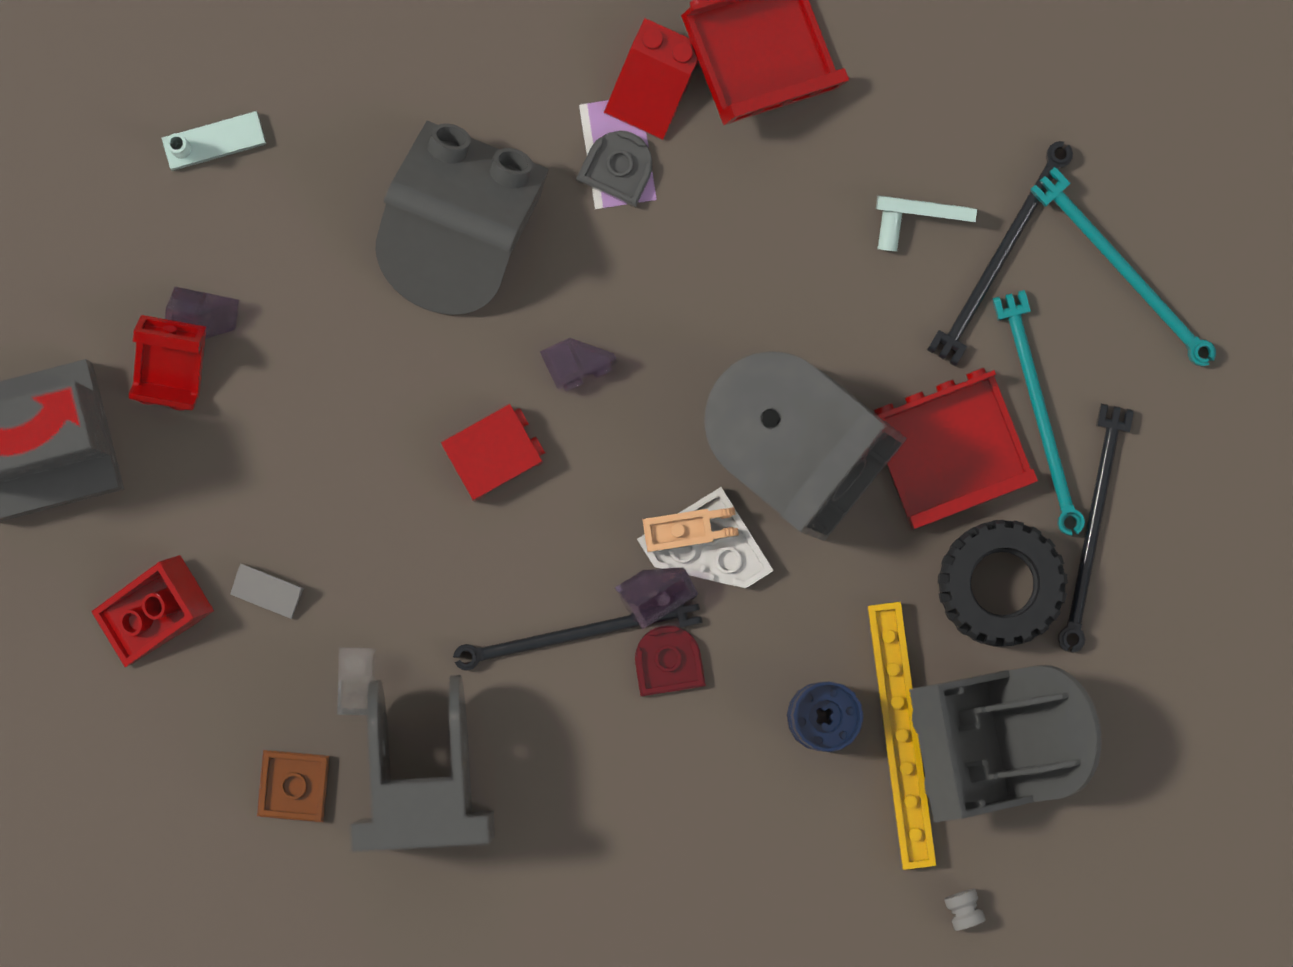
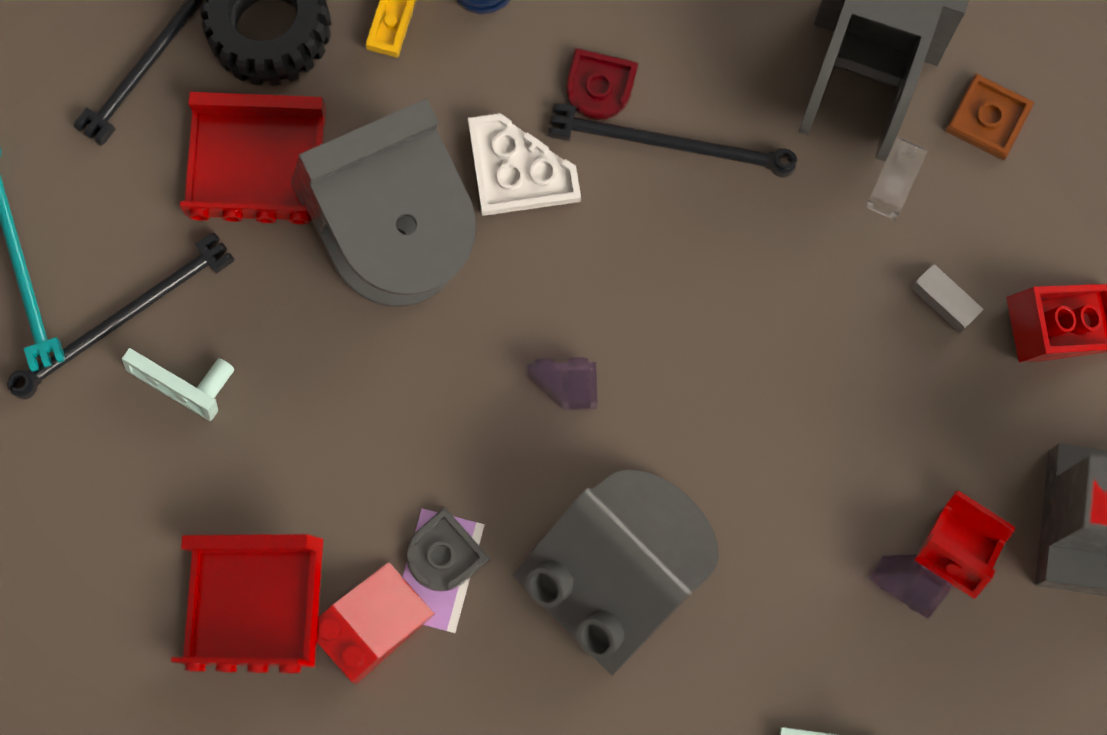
camera: 160 degrees left, 10 degrees down
(493, 451) = (681, 331): red panel -> none
(655, 593) = (586, 139): clear purple slope -> none
(685, 529) = (530, 182): light nougat hinge -> none
(1013, 314) = (139, 257): teal hinge -> none

